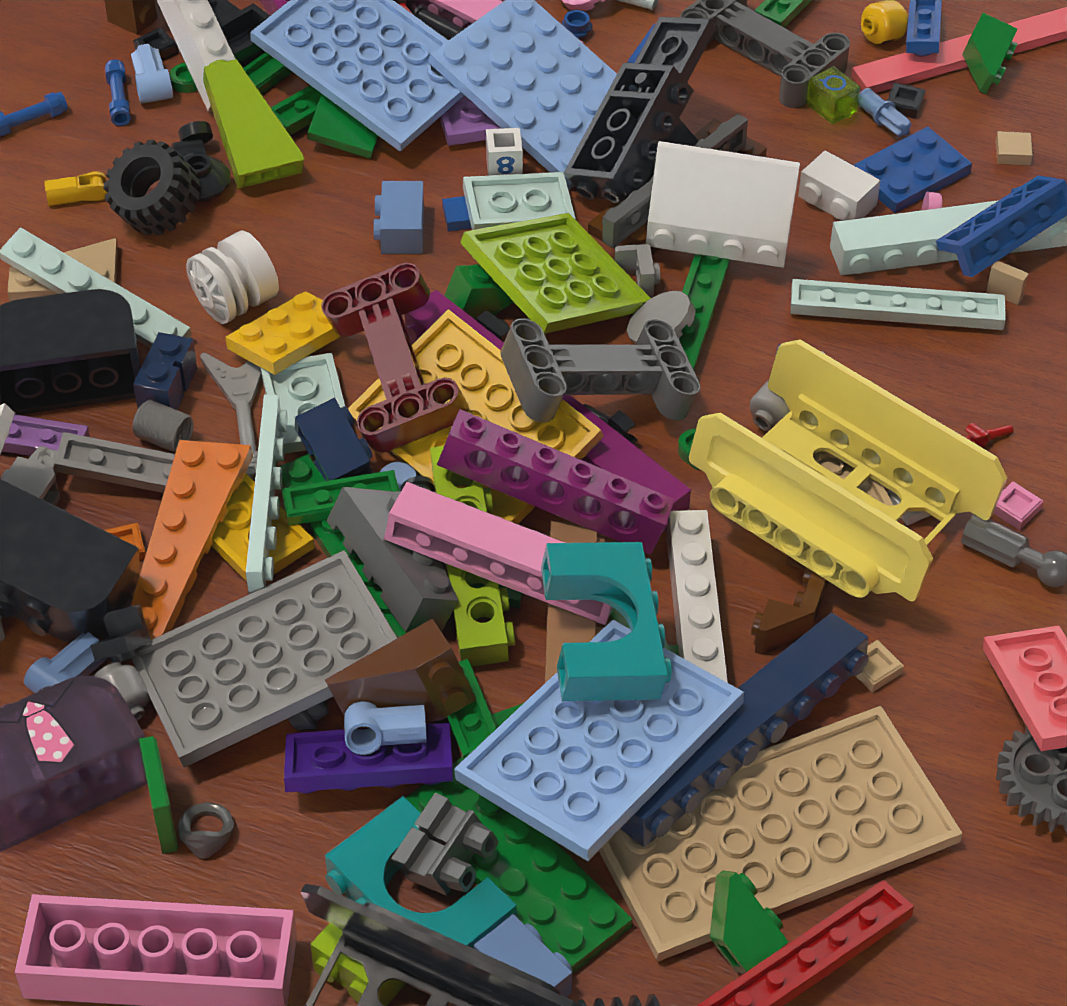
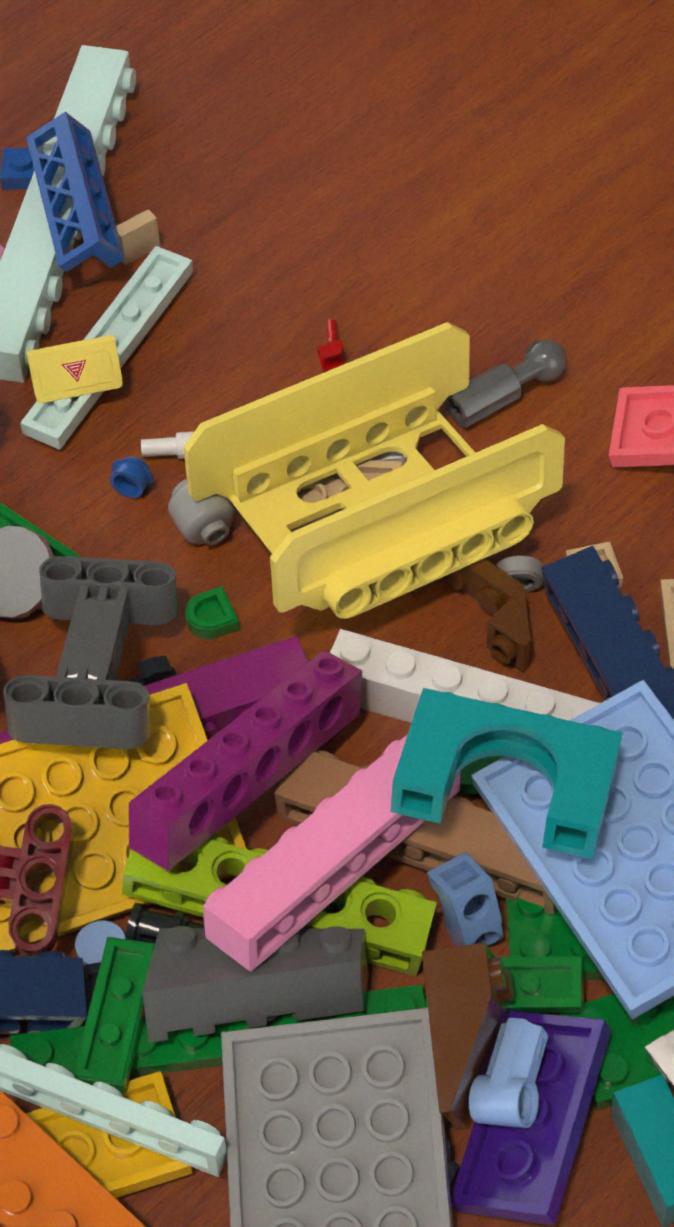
camera: 65 degrees left, 5 degrees up
(514, 661) = (467, 901): none -> medium blue leg
(834, 605) = (523, 569): none -> light grey tile
(851, 285) = (75, 369): none -> light yellow slope

